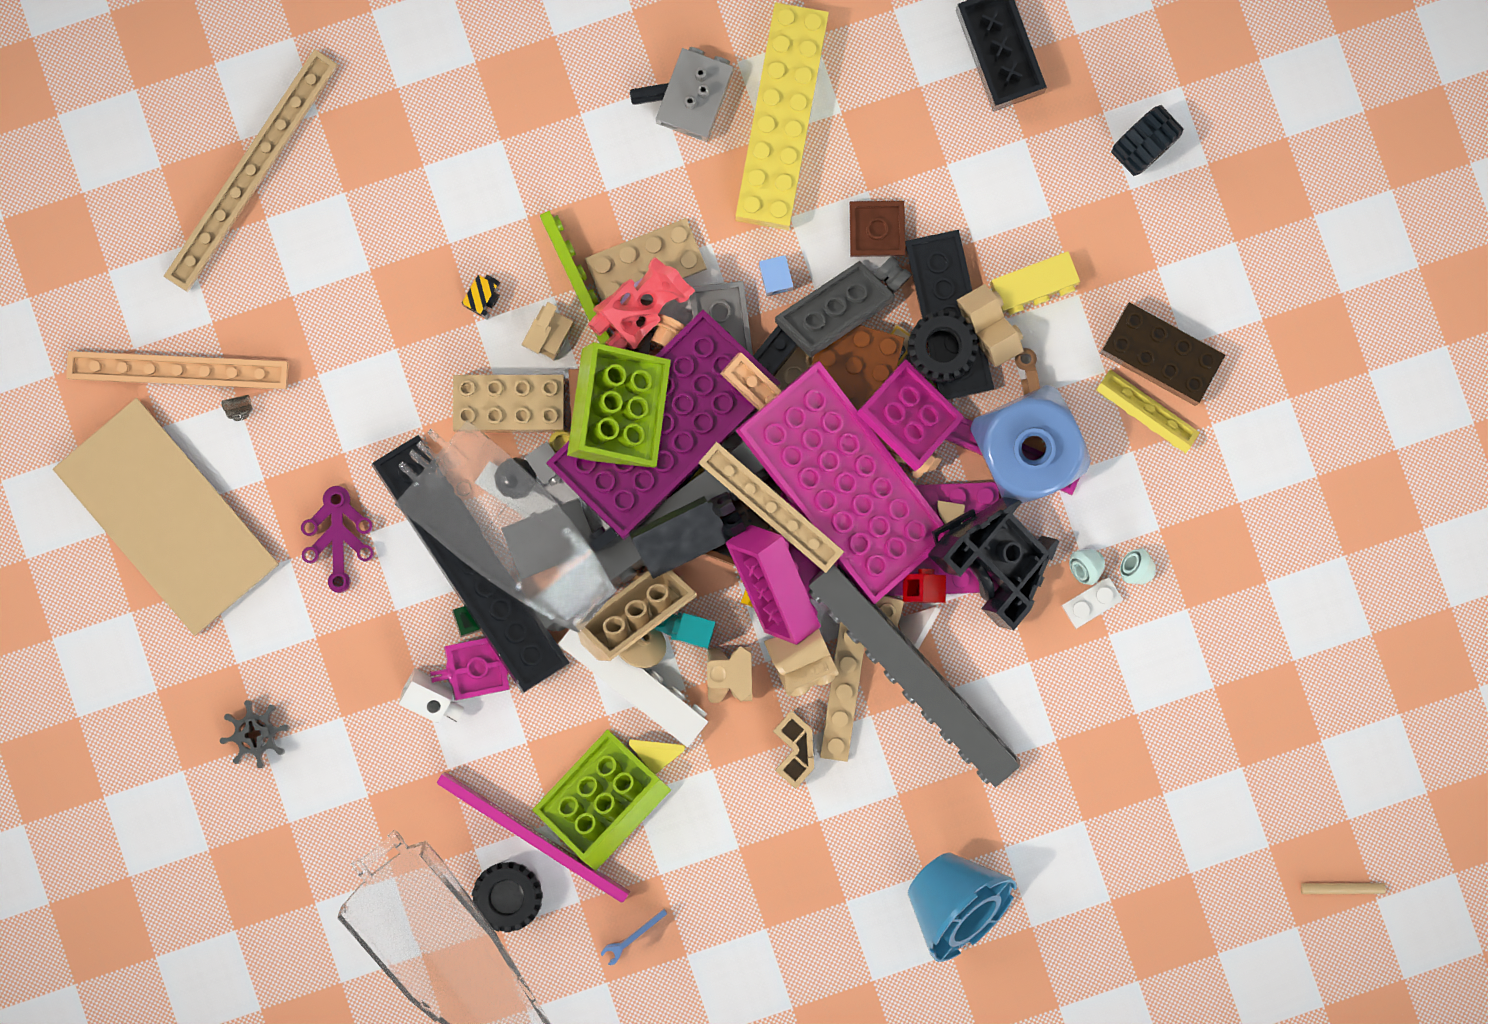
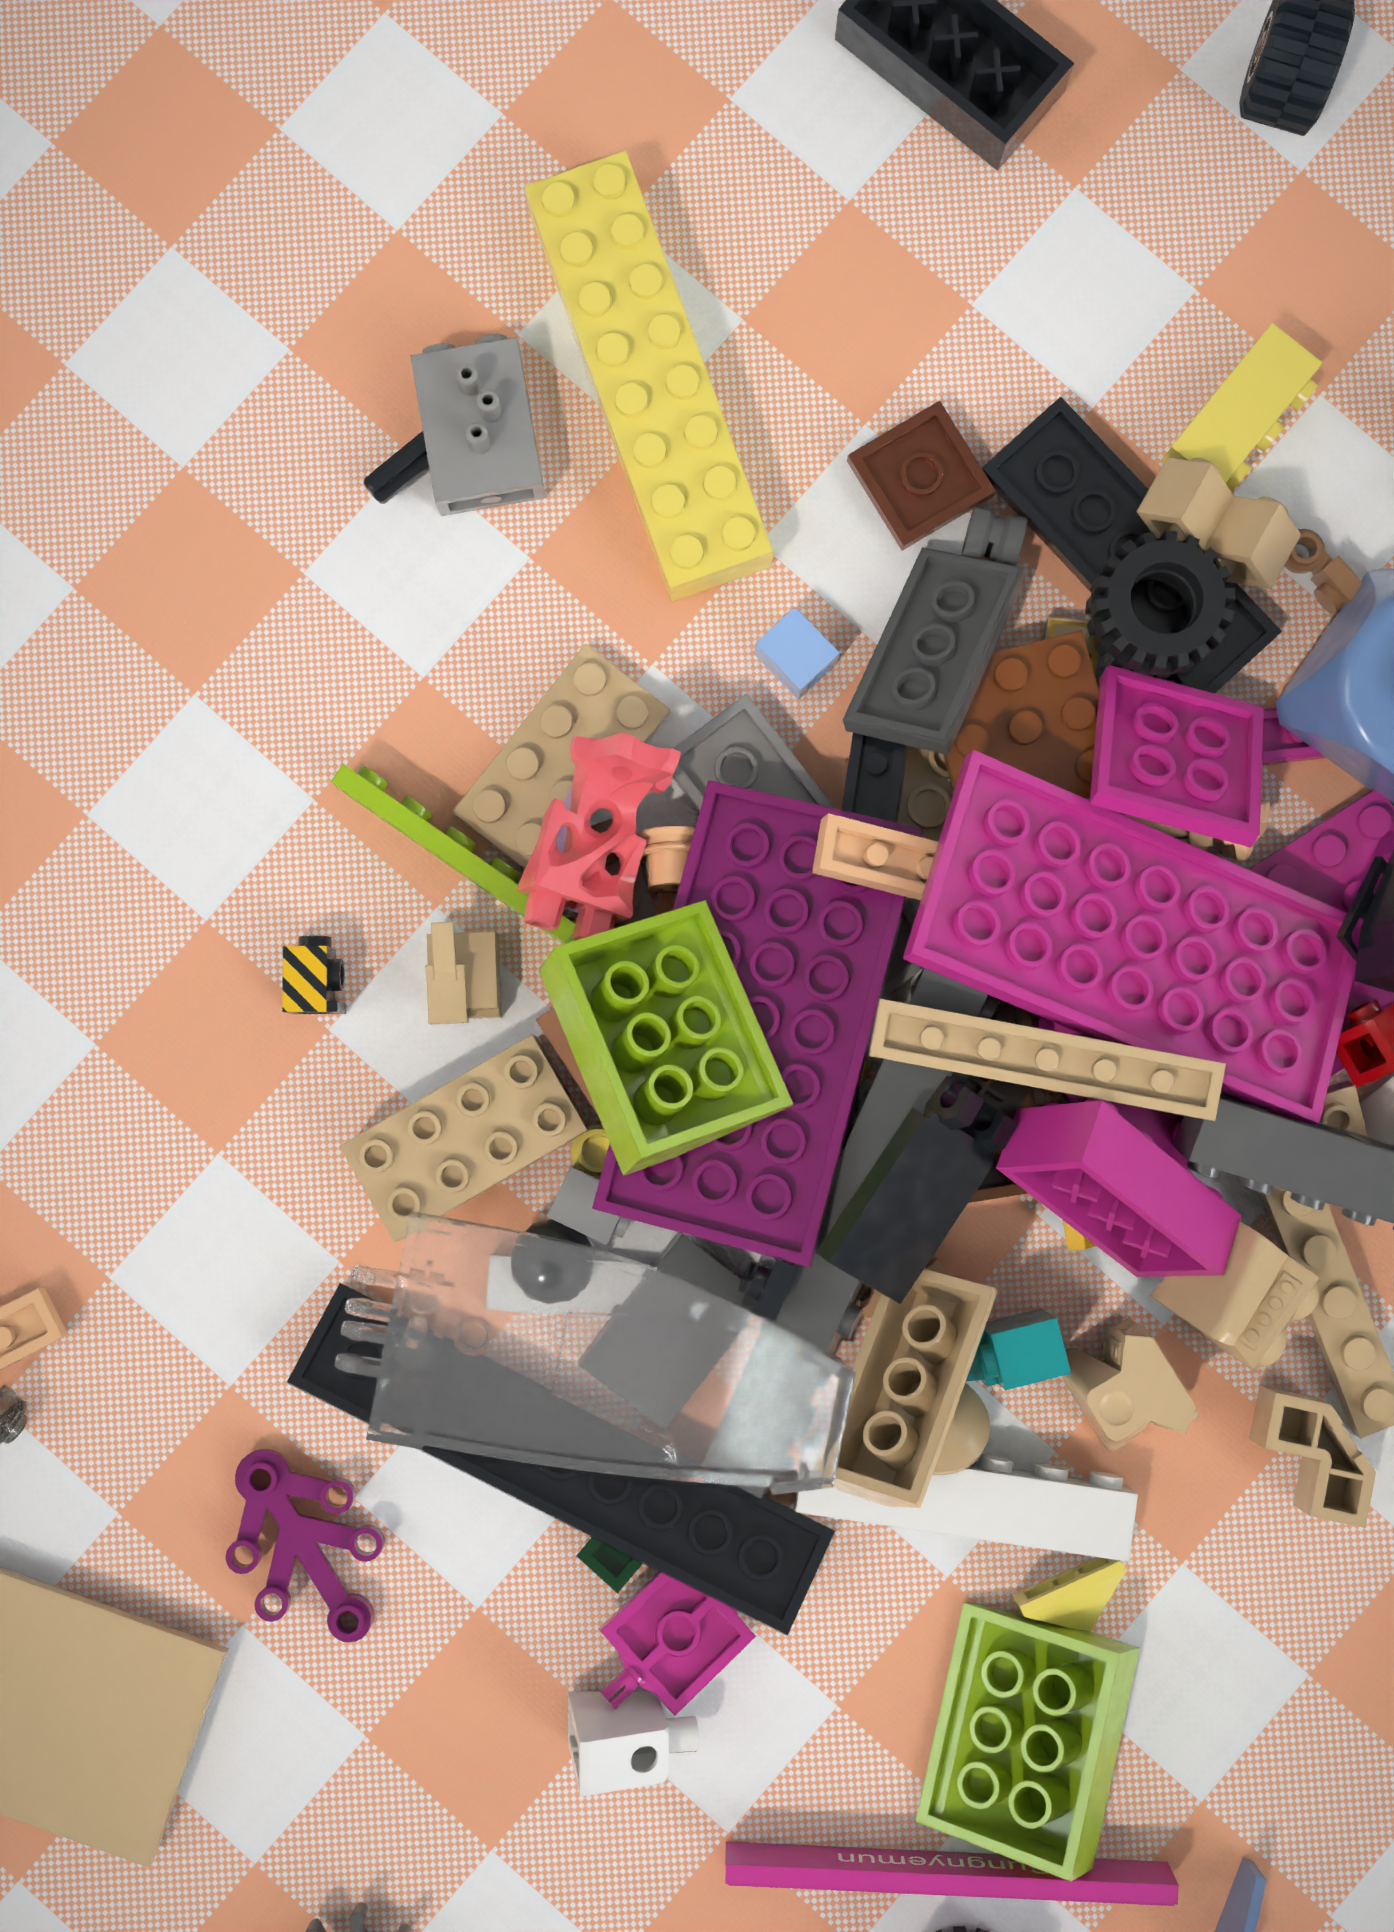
camera: 25 degrees left, 0 degrees up
(949, 511) = (1336, 884): tan tile -> none

